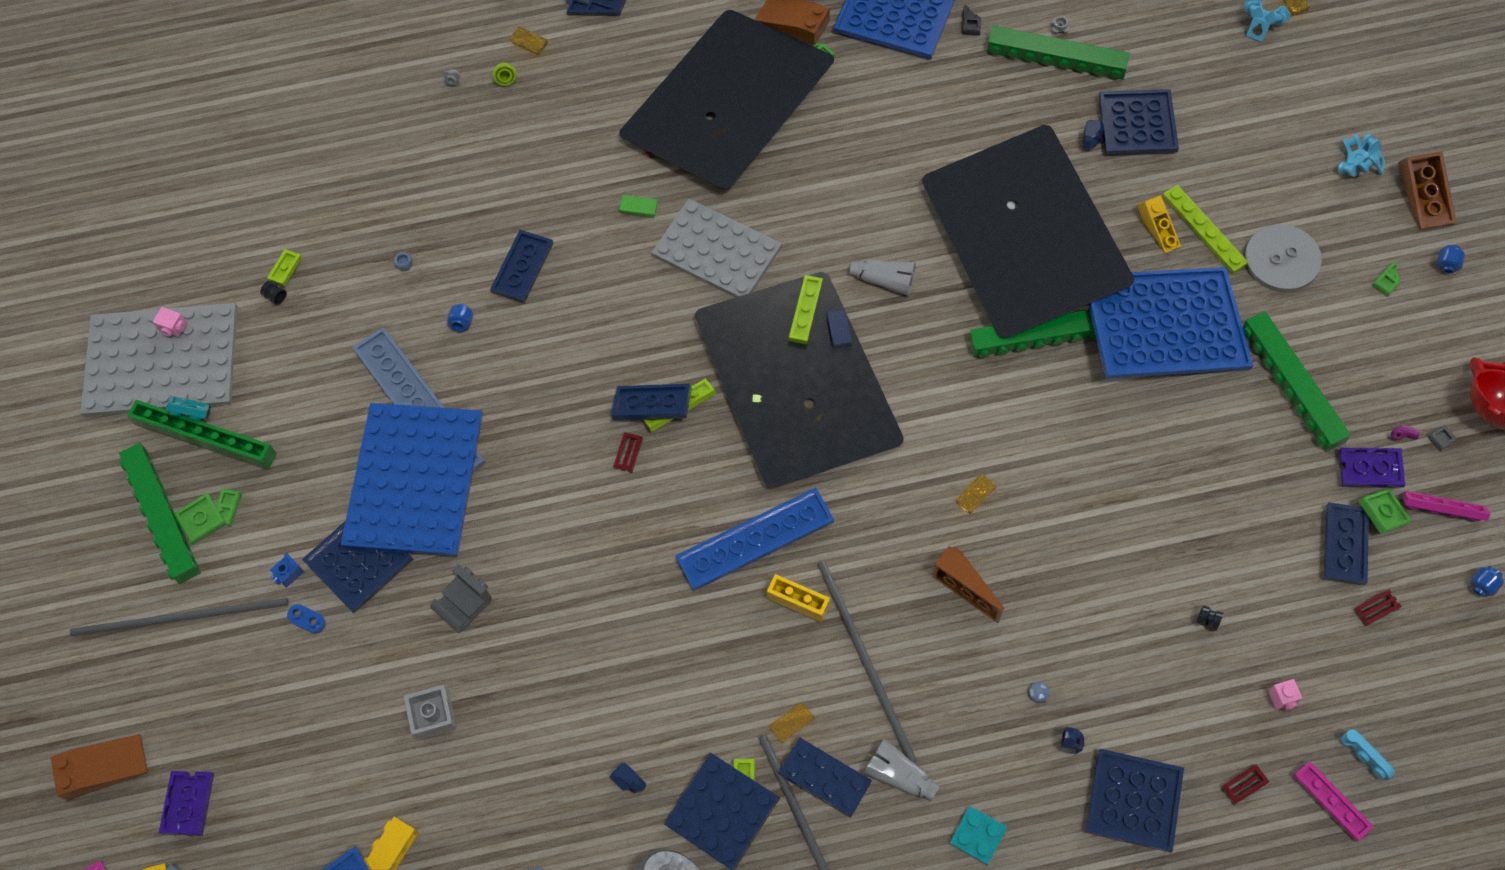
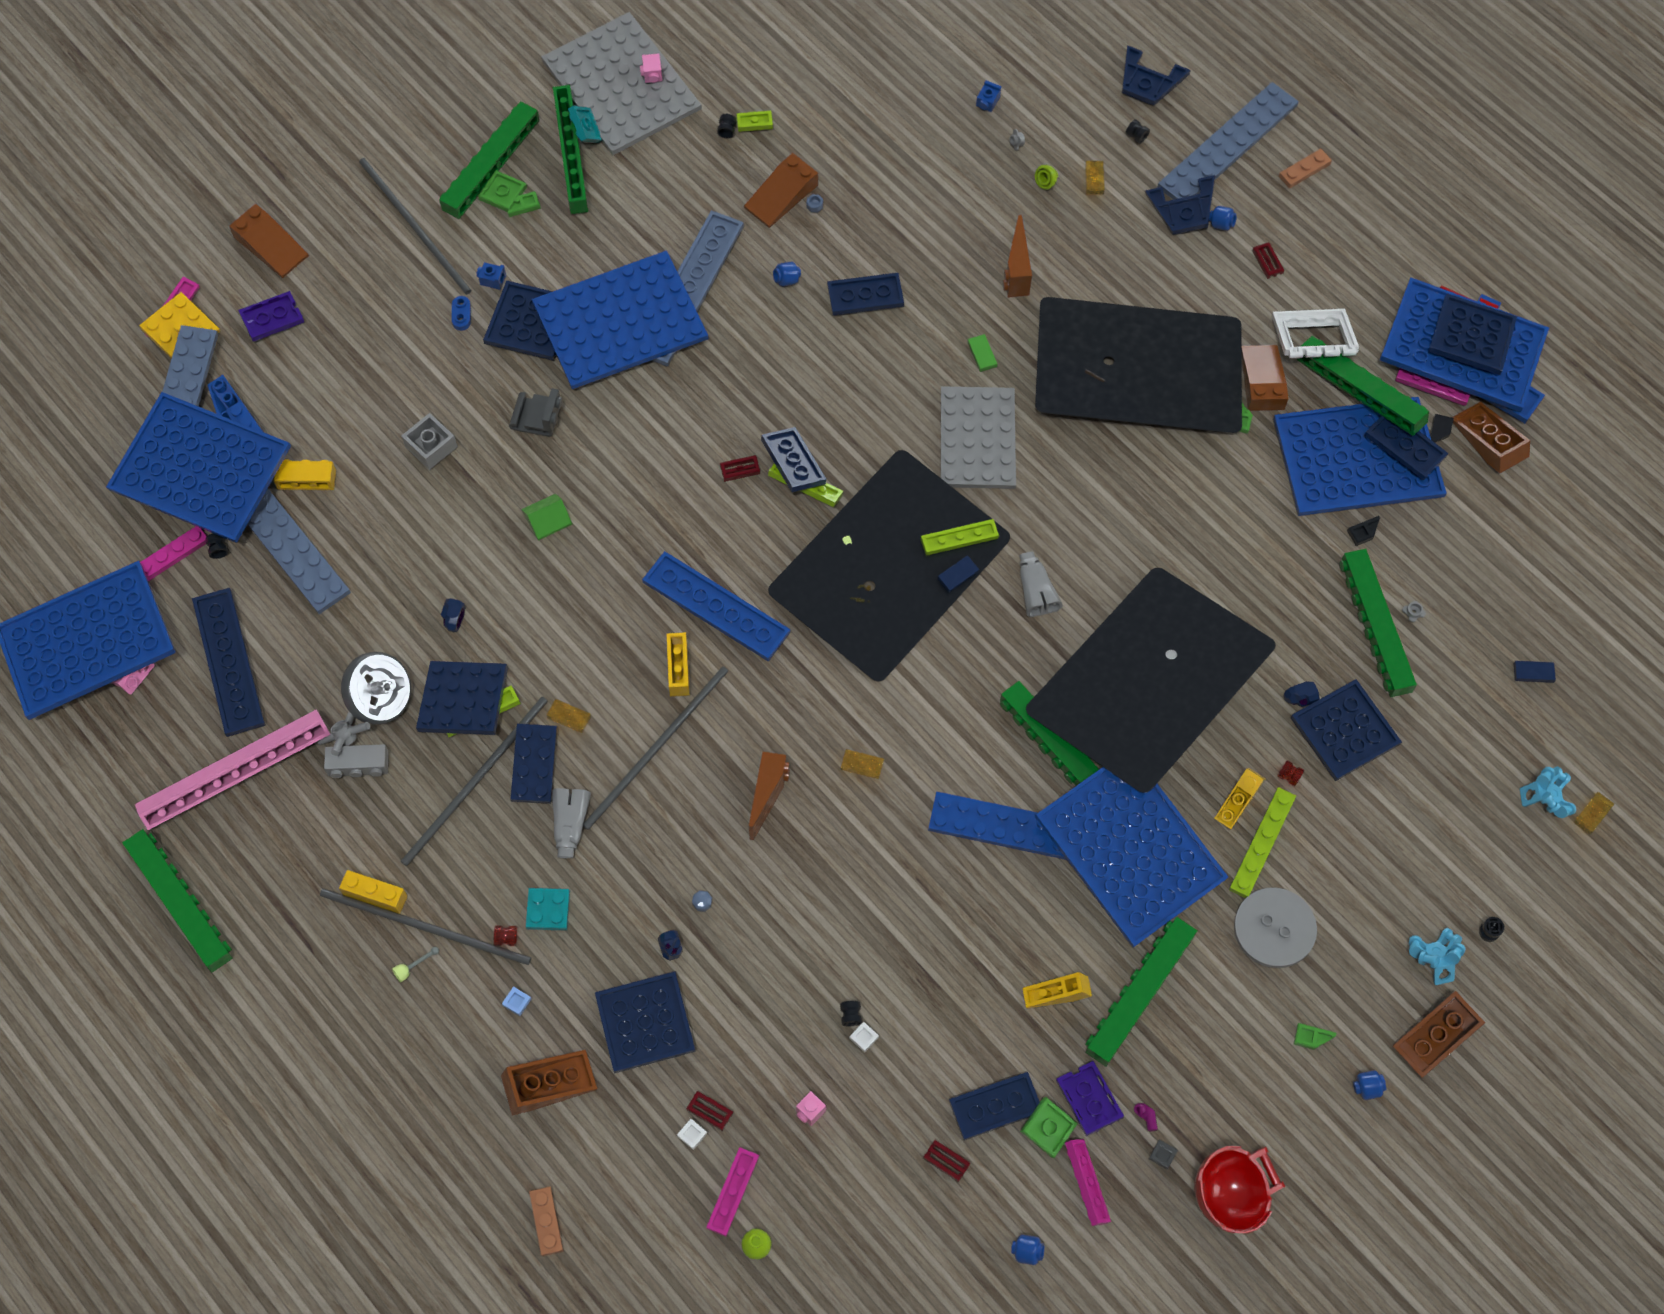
camera: 55 degrees right, 0 degrees up
(372, 280) = (782, 190): none -> dark orange slope
(394, 77) = (988, 96): none -> blue brick
(573, 642) = (547, 516): none -> bright green slope
(576, 133) = (1018, 272): none -> dark orange slope
(1086, 419) = (991, 824): none -> blue plate
(1158, 177) = (1290, 773): none -> clear red wheel
(1236, 618) = (864, 1037): none -> white plate
(1262, 810) = (692, 1134): none -> white plate
(1265, 444) = (1058, 991): none -> yellow slope
(1357, 112) = (1487, 929): none -> black wheel
(1368, 755) = (792, 1204): medium azure plate -> none
(1388, 805) = (756, 1244): none -> lime brick

